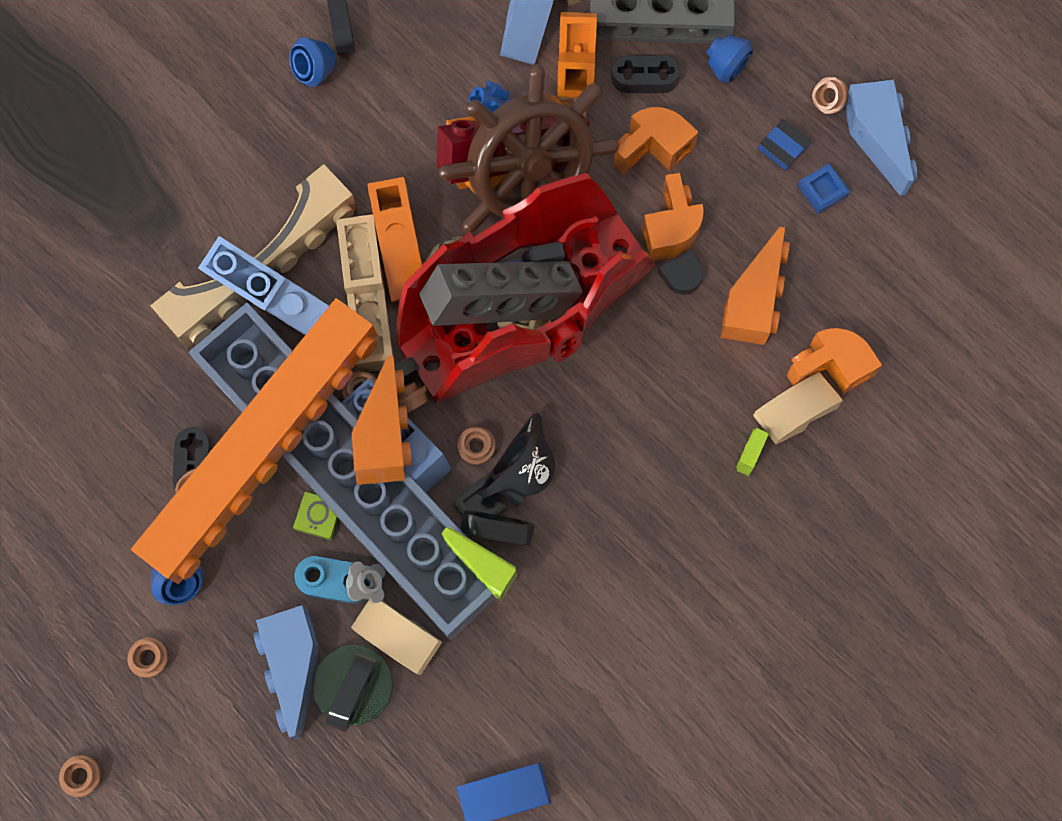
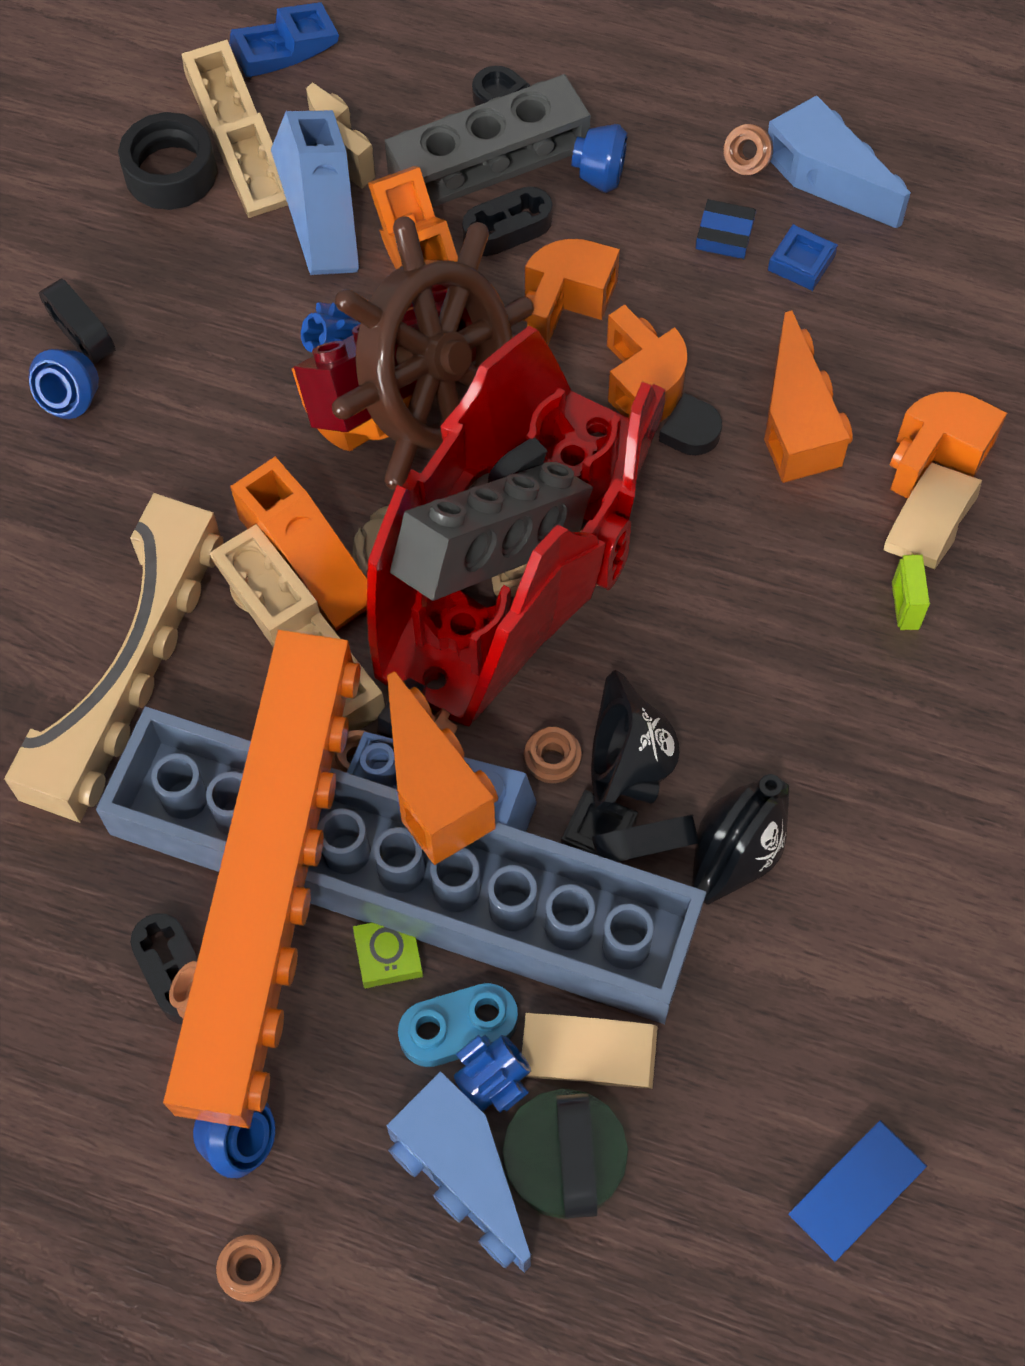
camera: 30 degrees left, 10 degrees down
(262, 286) = (160, 678): light blue slope -> none
(333, 619) = (492, 1073): none -> blue gear
(355, 582) = (510, 997): light grey plate -> none
(488, 567) = (670, 879): lime slope -> none
(560, 553) = (741, 837): none -> black hat

